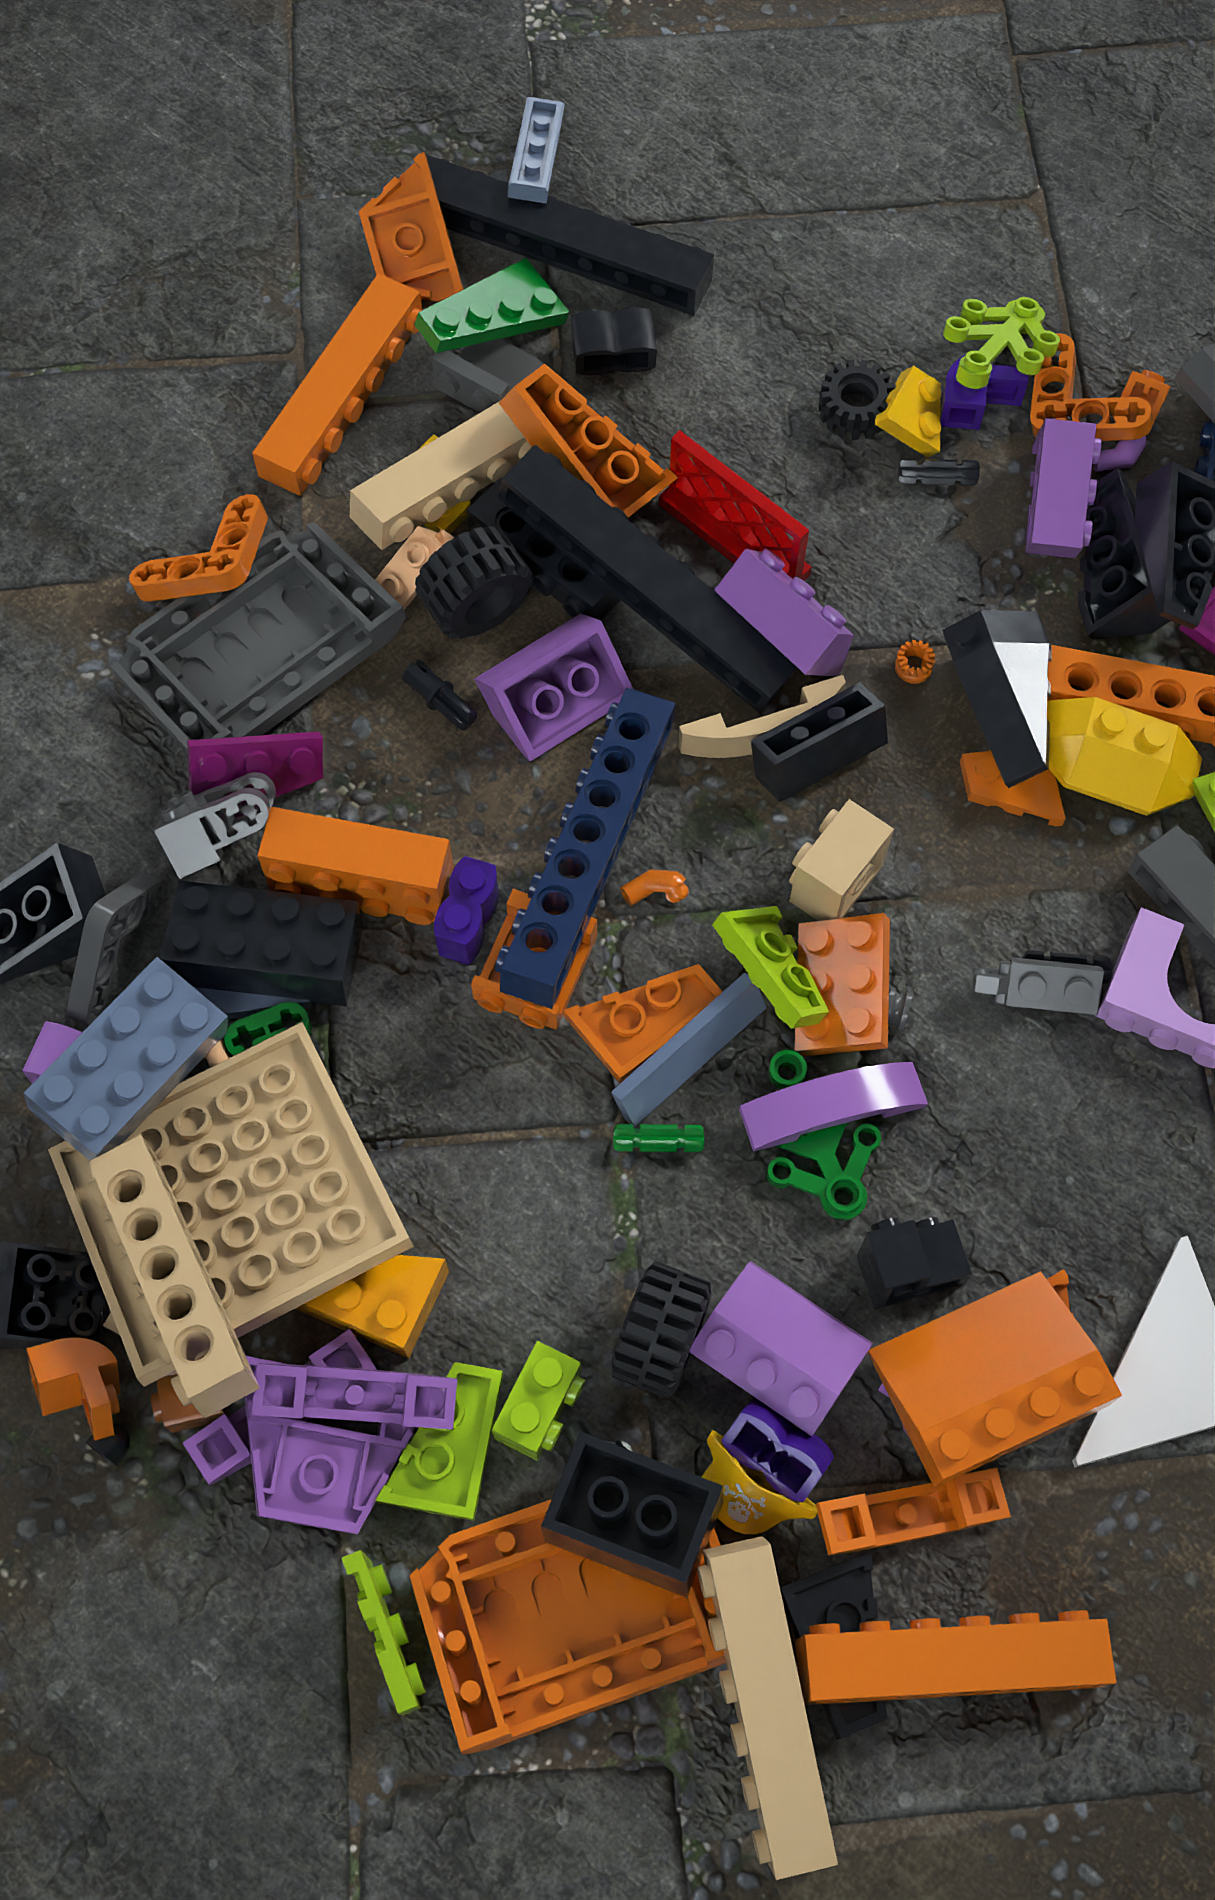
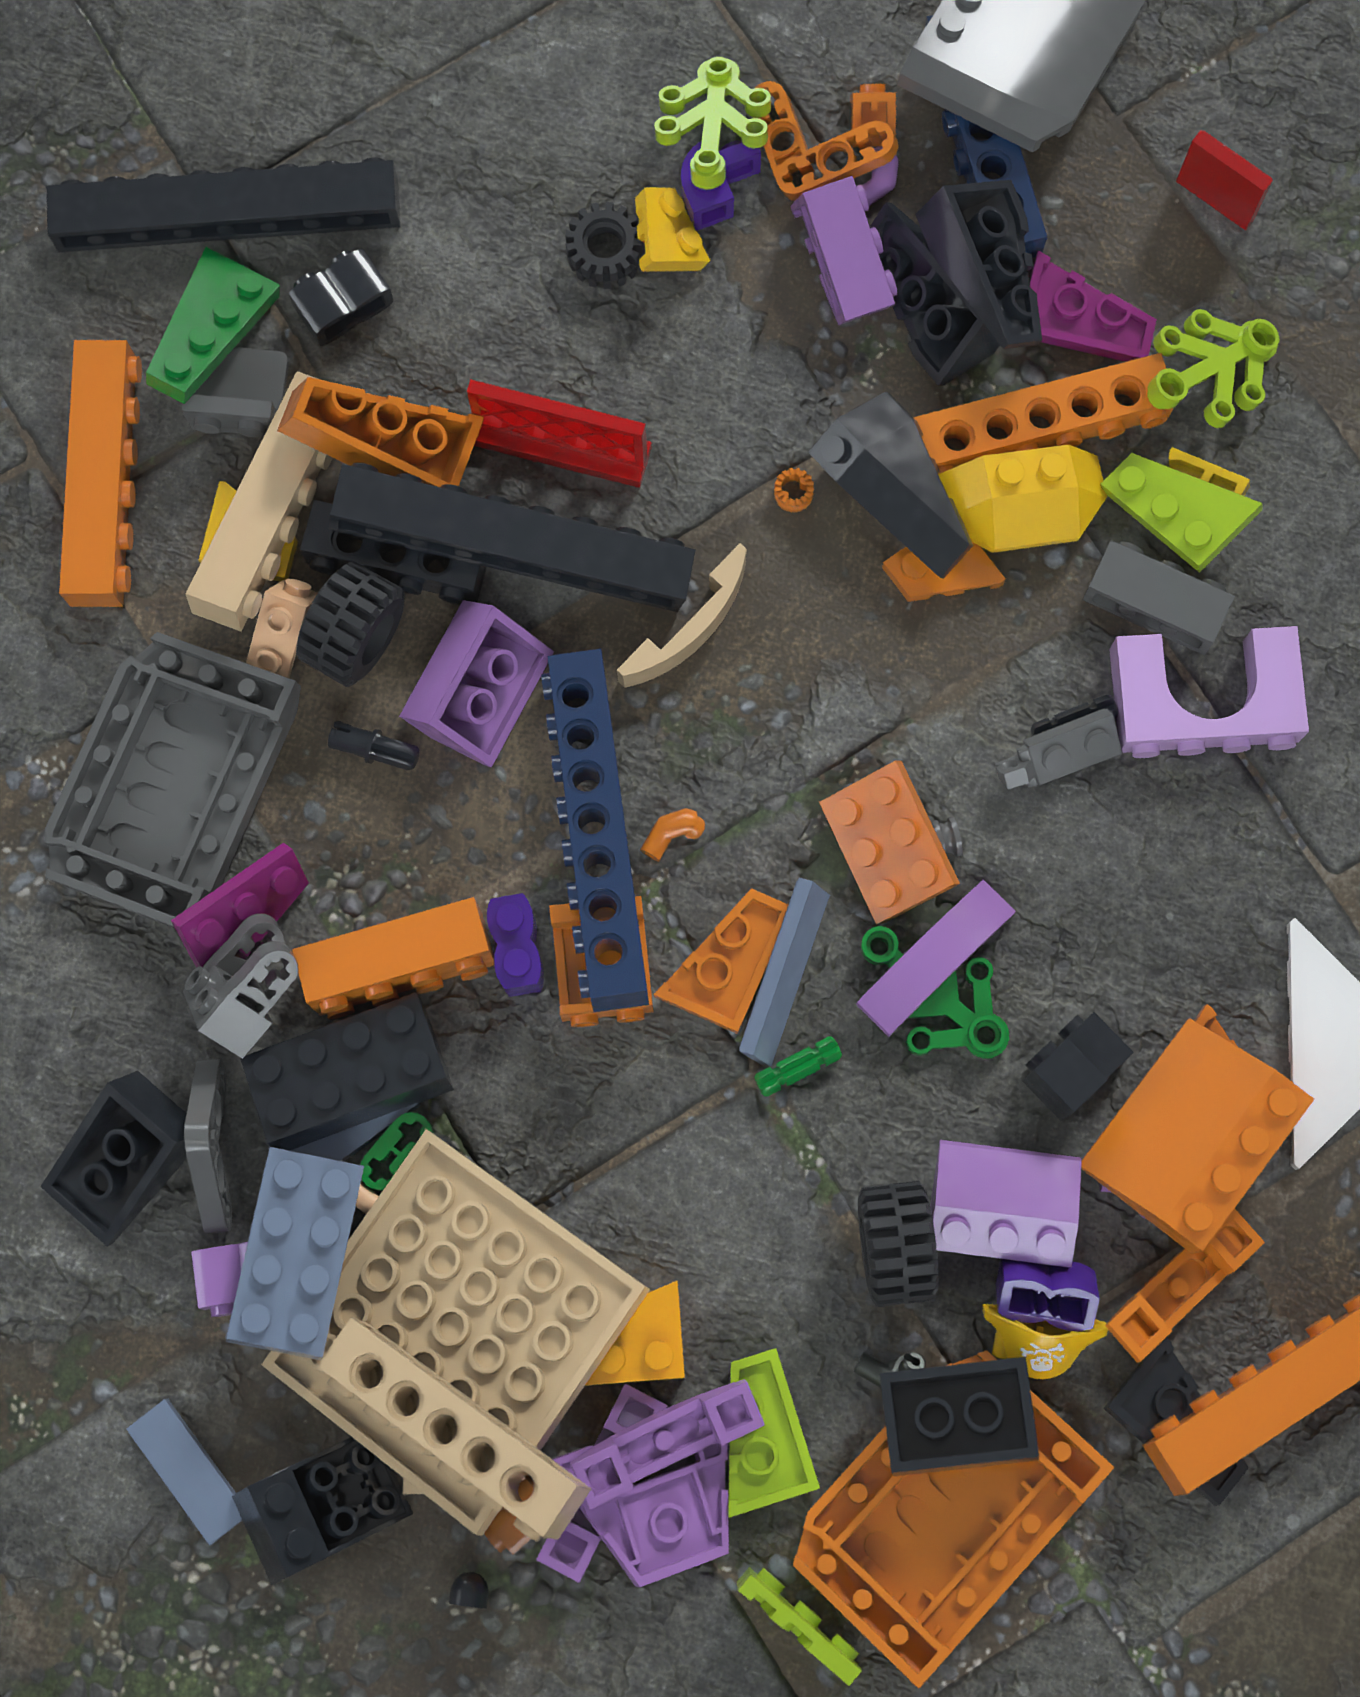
camera: 25 degrees left, 10 degrees up
(77, 1374) = (406, 1550): orange brick -> none
(213, 571) = (90, 718): orange beam -> none
(410, 234) = (83, 283): orange wing -> none
(536, 150) = (154, 125): sand blue tile -> none
(537, 1401) = (821, 1358): lime brick -> none
(769, 1708) = (1151, 1513): tan brick -> none
(770, 963) = (813, 855): lime wing -> none
(787, 613) = (659, 511): medium lavender slope -> none
(819, 741) = (751, 618): black brick -> none
(840, 862) = (833, 732): tan brick -> none
(938, 471) = (719, 282): black axle -> none

